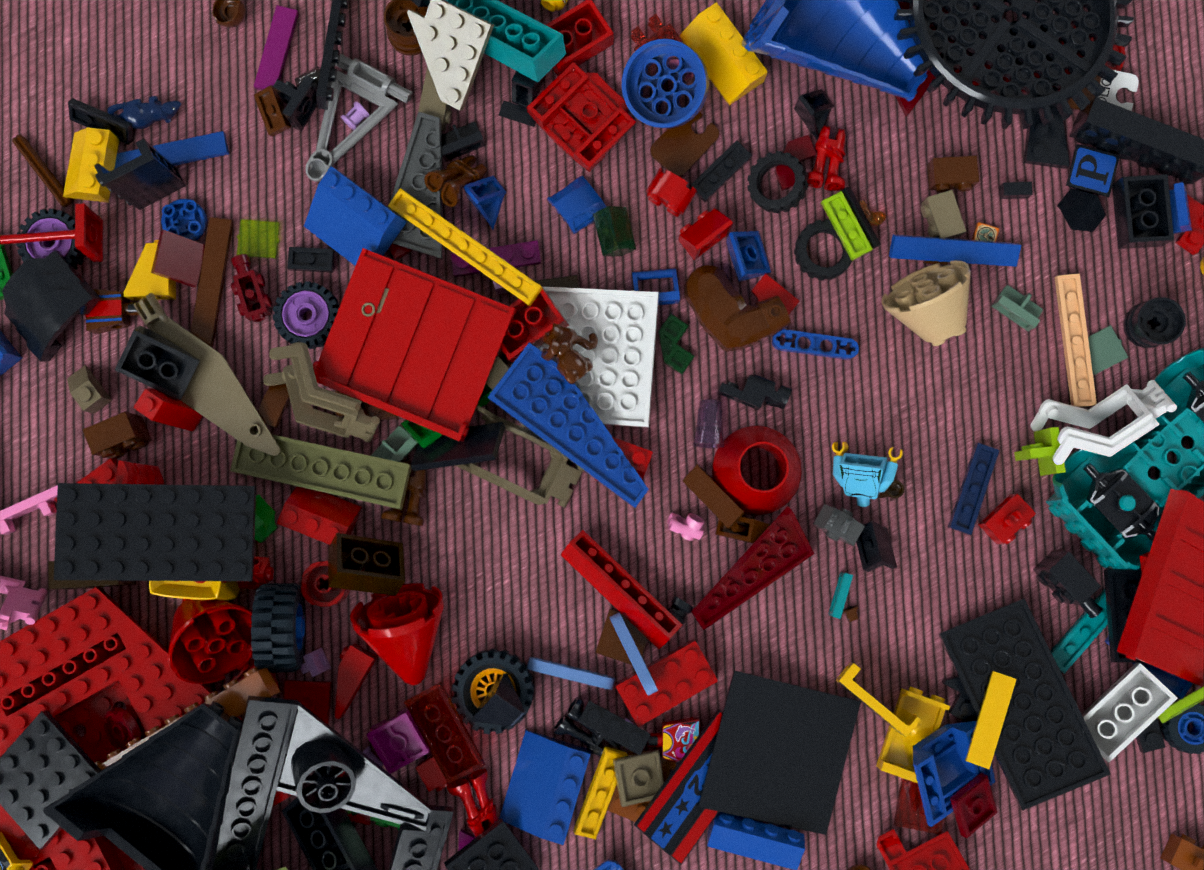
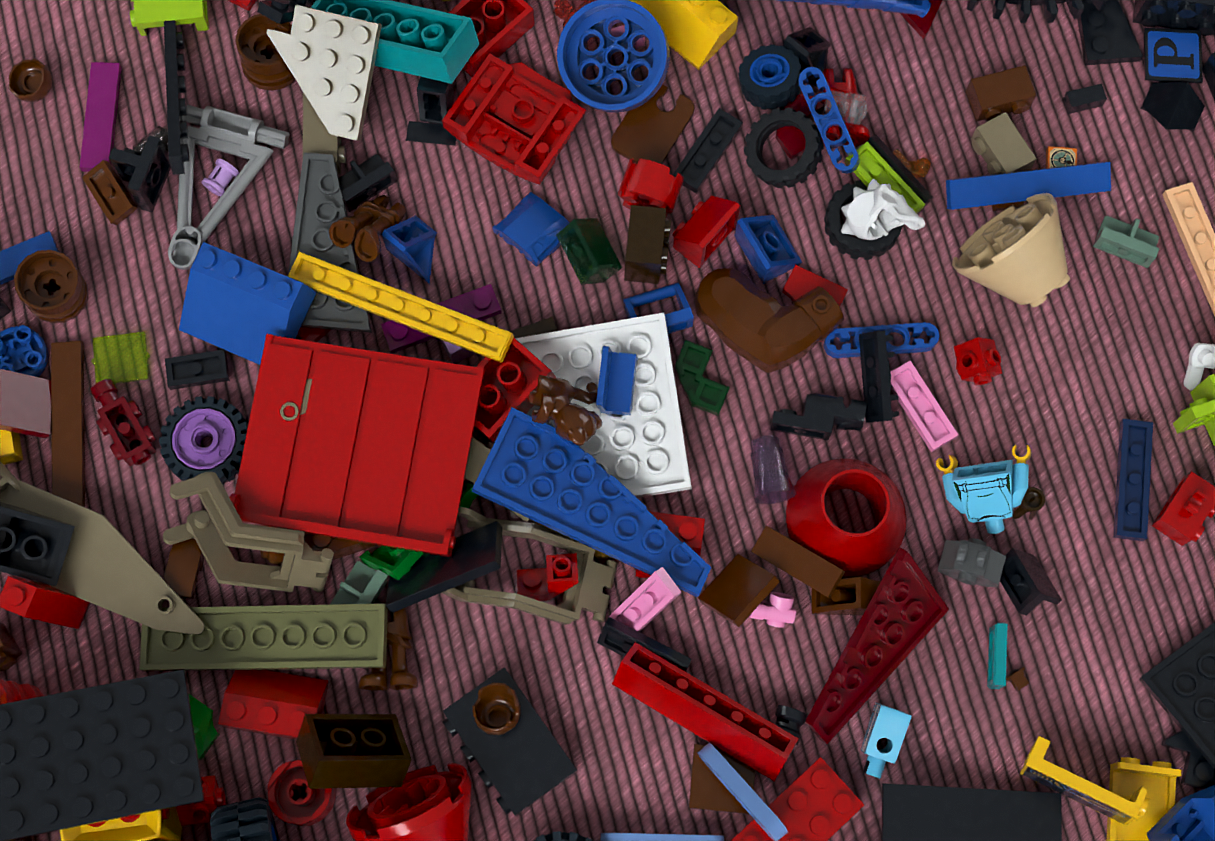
camera: 15 degrees left, 10 degrees down
(214, 163) = (40, 275): none -> reddish brown wheel
(473, 557) = (496, 709): none -> reddish brown hair
(478, 580) = (519, 763): none -> black panel
(531, 471) = (549, 582): none -> red slope
(575, 524) = (621, 638): none -> black tile
(595, 504) = (647, 601): none -> bright pink plate
(611, 337) = (616, 382): none -> blue panel
(656, 236) = (647, 244): none -> dark brown brick
(665, 507) = (738, 590): none -> reddish brown tile
(748, 626) = (887, 724): none -> medium azure torso
(778, 112) = (783, 71): none -> black wheel
(804, 372) = (876, 376): none -> black plate
(813, 169) = (825, 121): none -> blue beam
(831, 161) = (851, 106): none -> clear bracket
(831, 400) = (921, 407): none -> bright pink plate
(835, 248) = (878, 212): none -> white head
(882, 376) = (978, 360): none -> red brick

